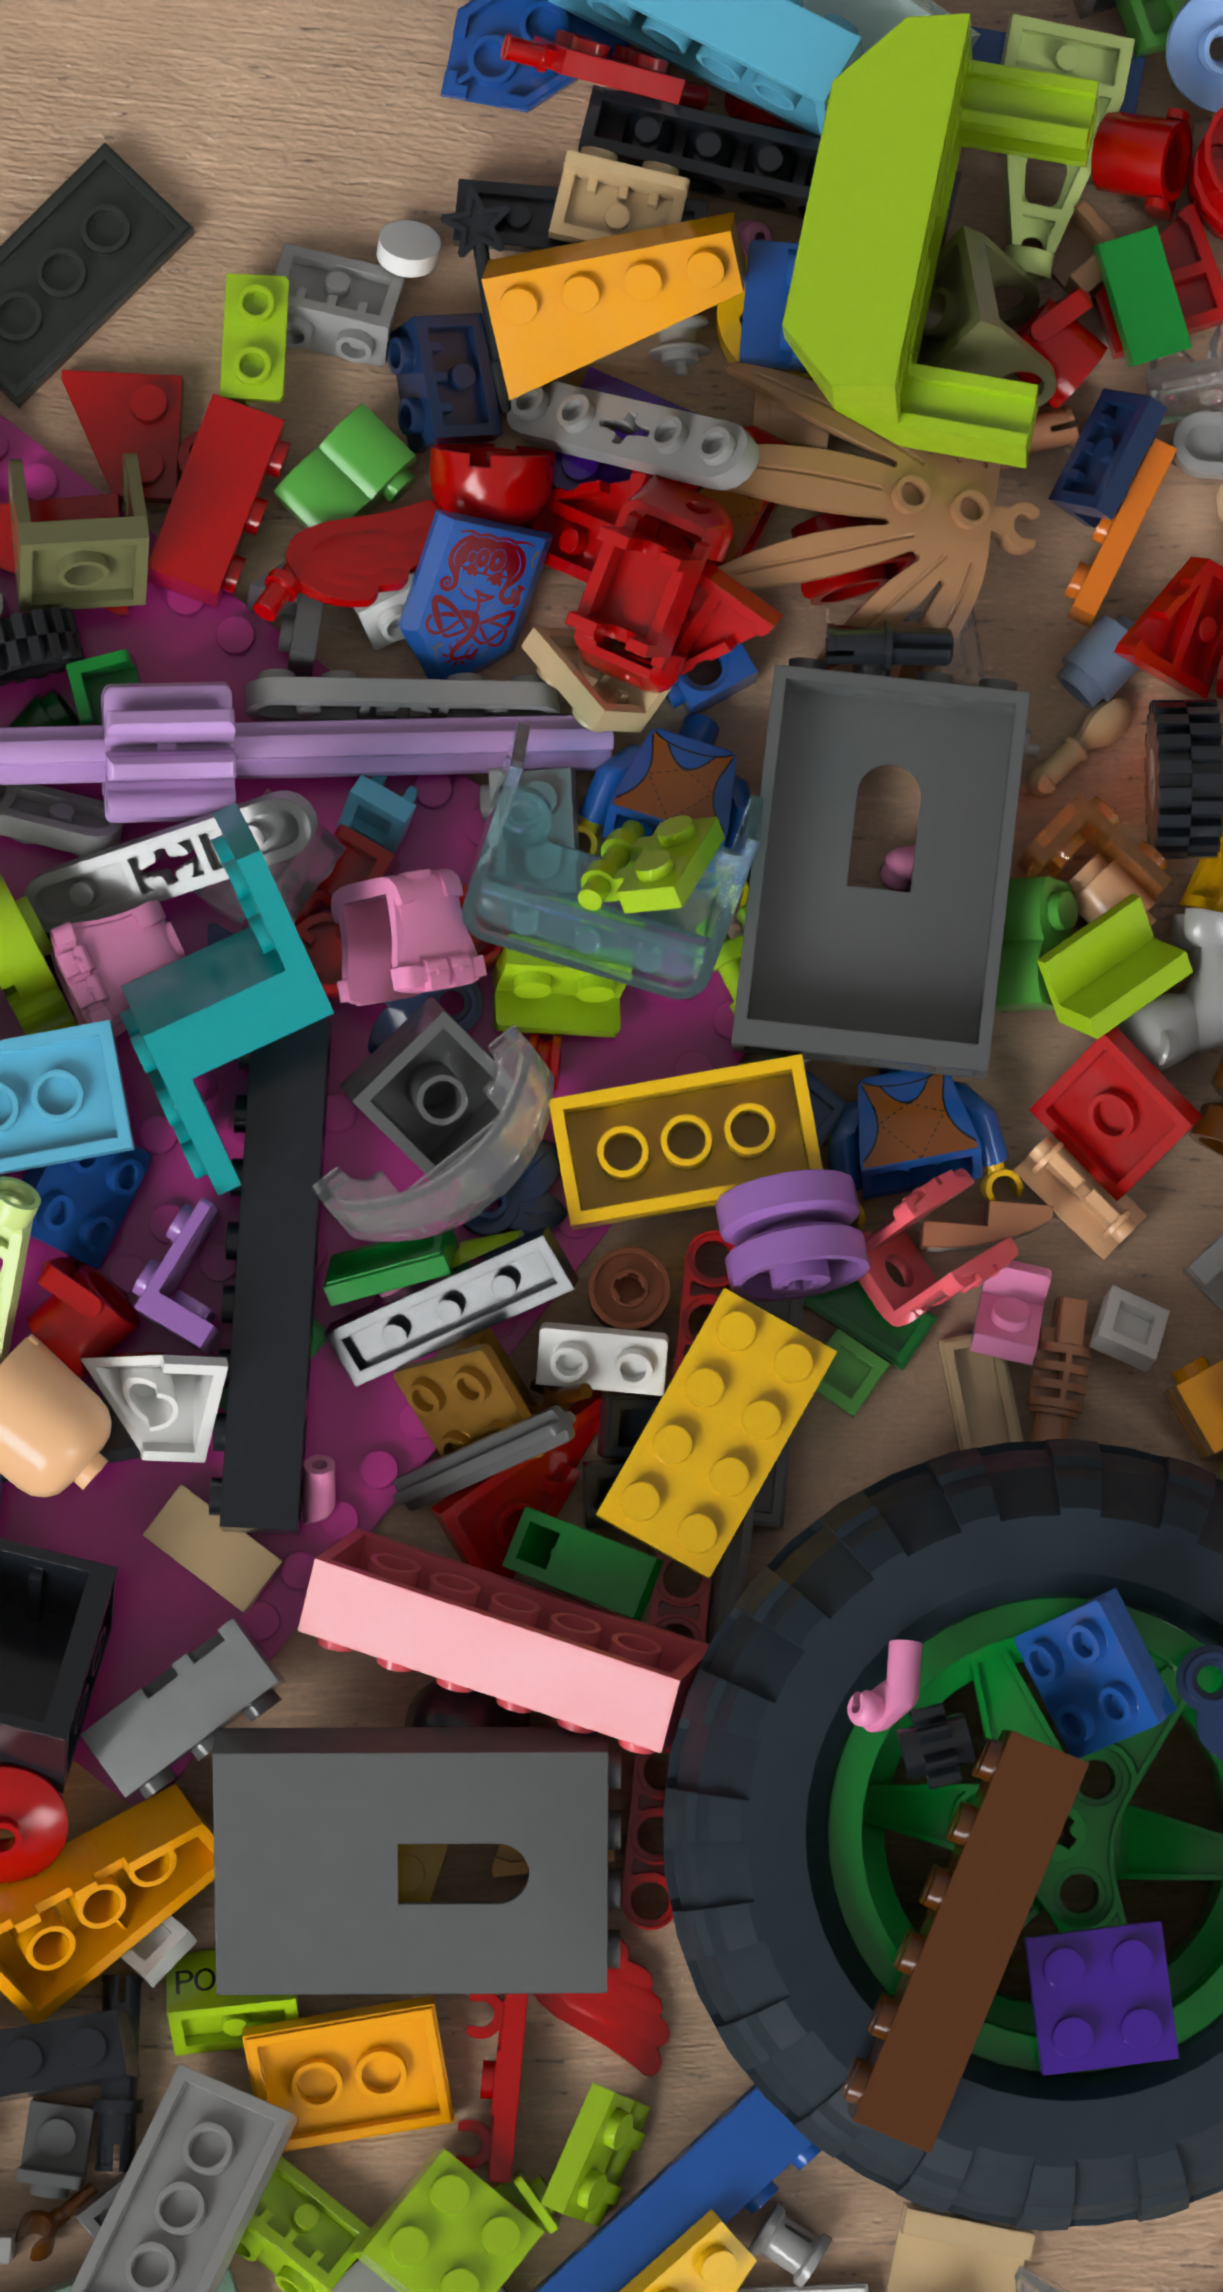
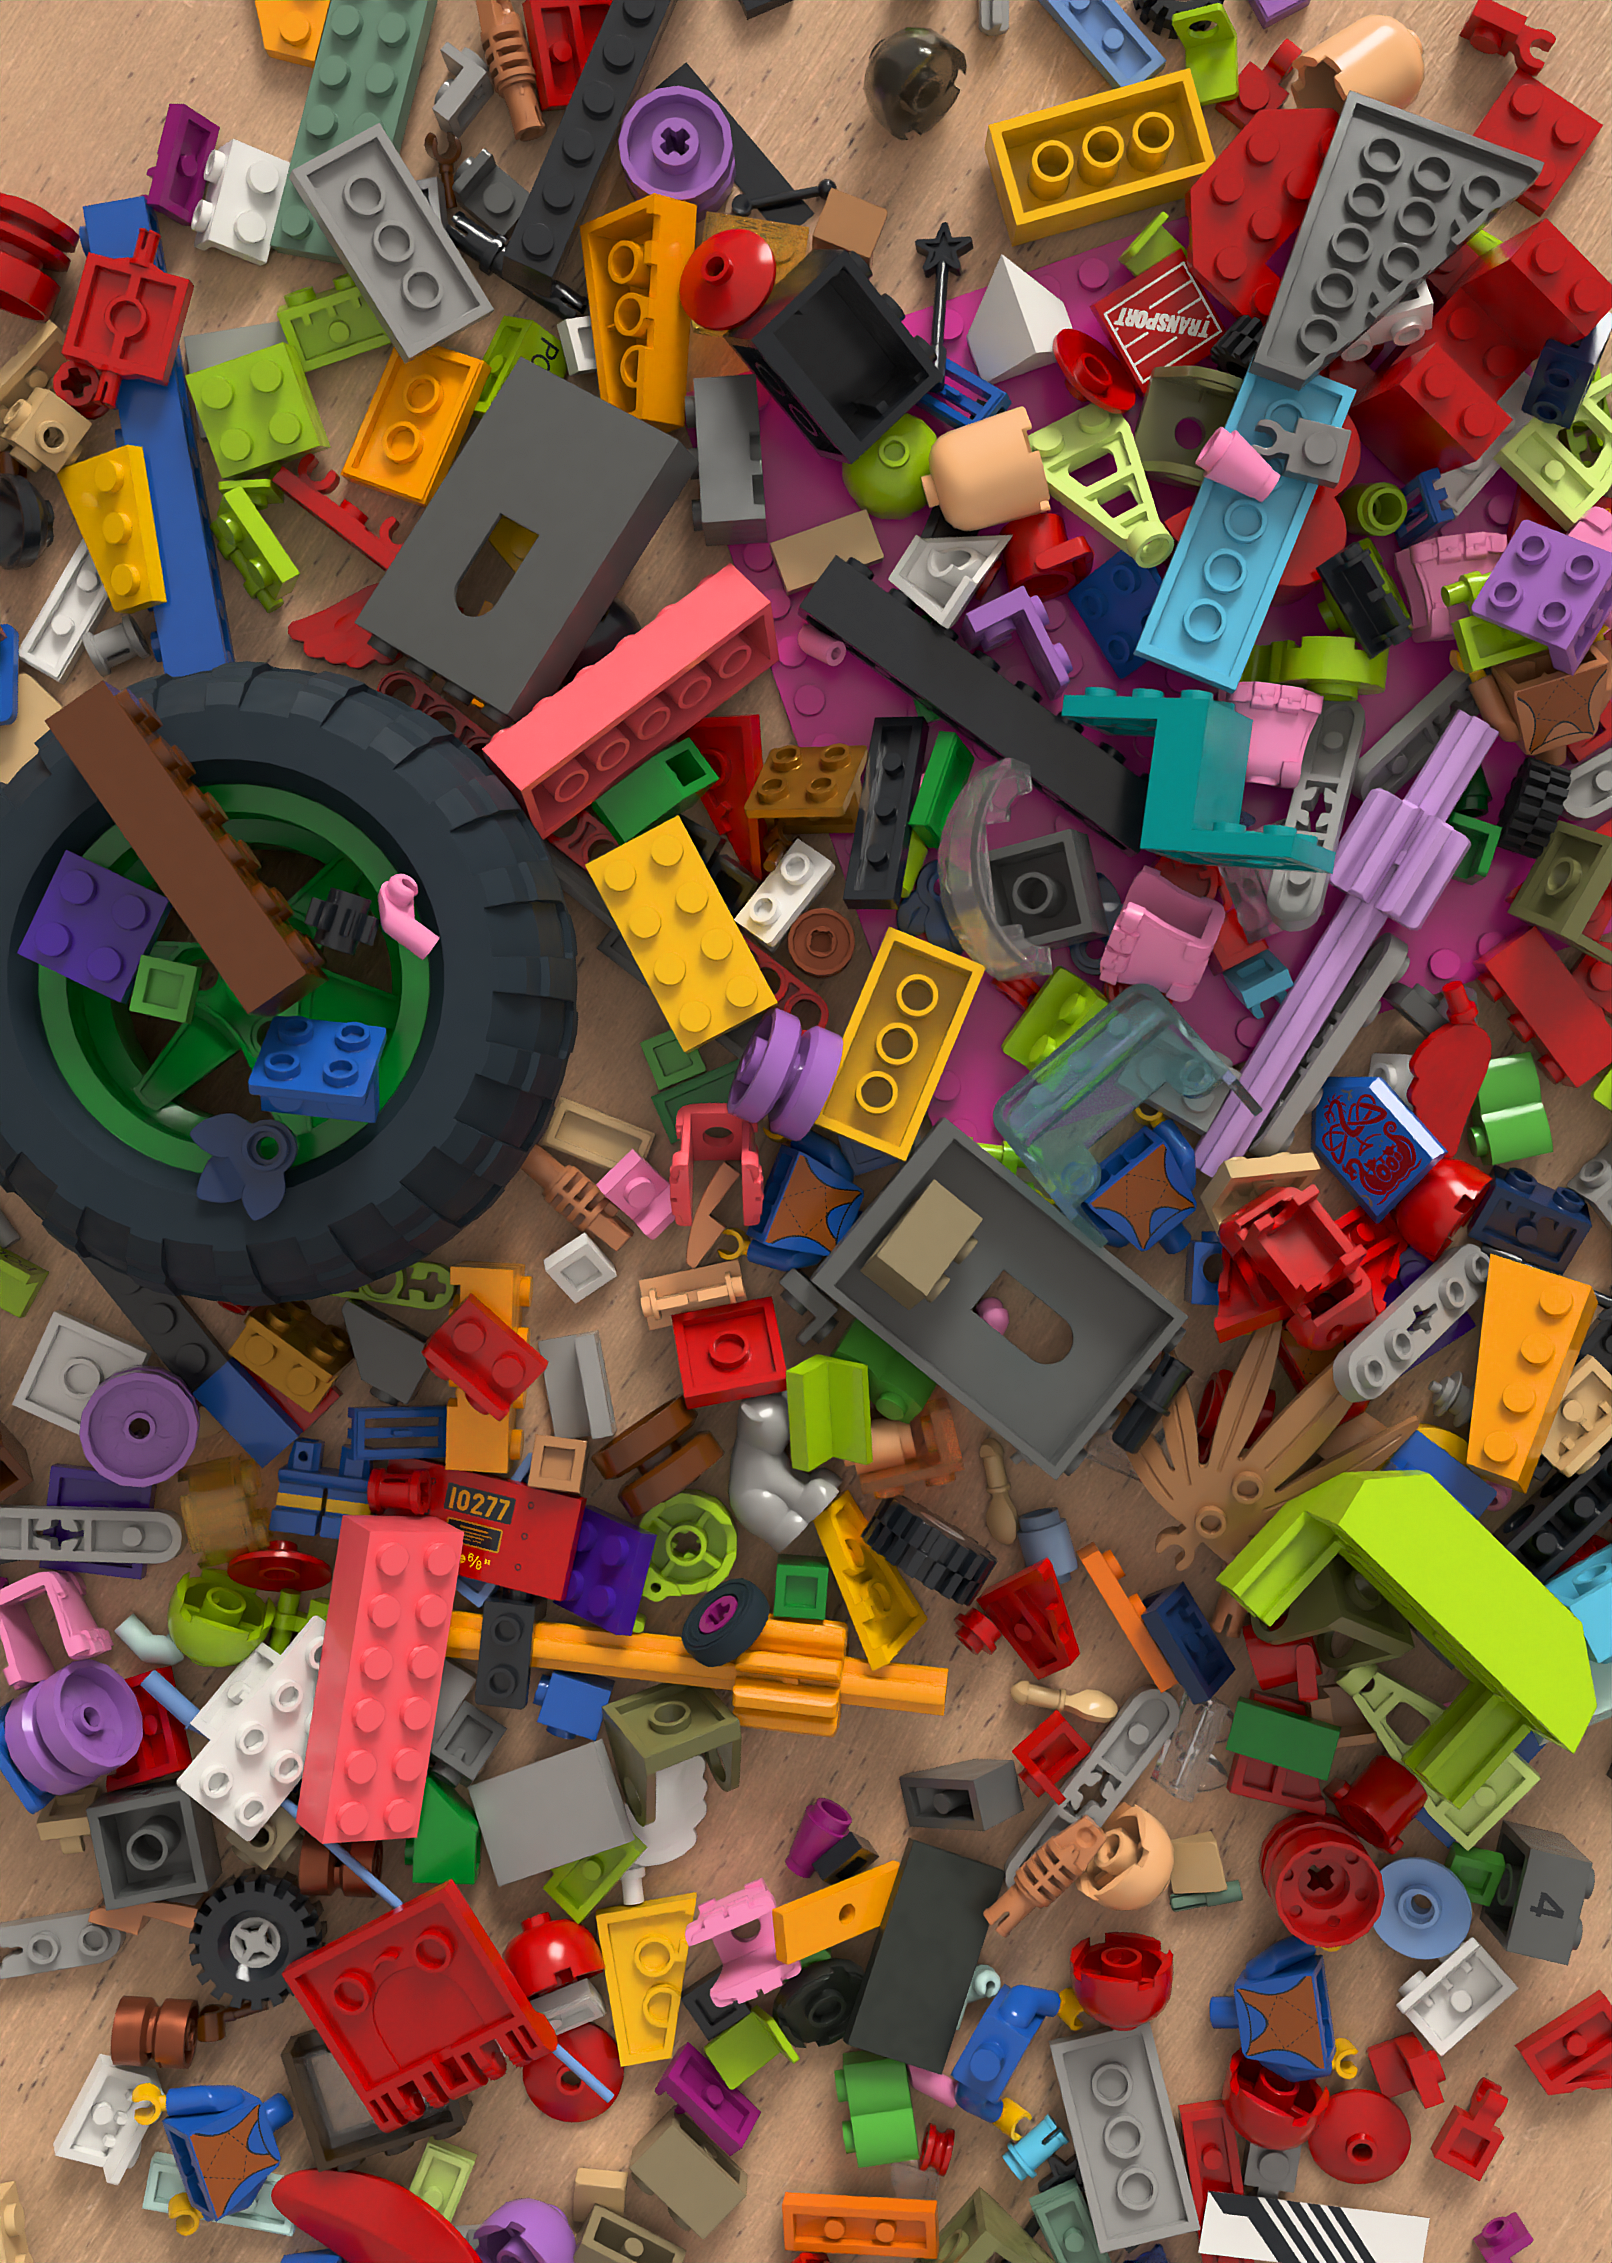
camera: 120 degrees right, 5 degrees up
(86, 1524) = (890, 471): none -> lime cylinder
(484, 1458) = (767, 768): dark grey axle -> none
(653, 869) = (1098, 1138): lime plate -> none
(878, 979) = (922, 1246): none -> dark tan brick
(1008, 1077) = (804, 1296): none -> dark grey bracket
(1118, 1883) = (165, 989): none -> bright green plate

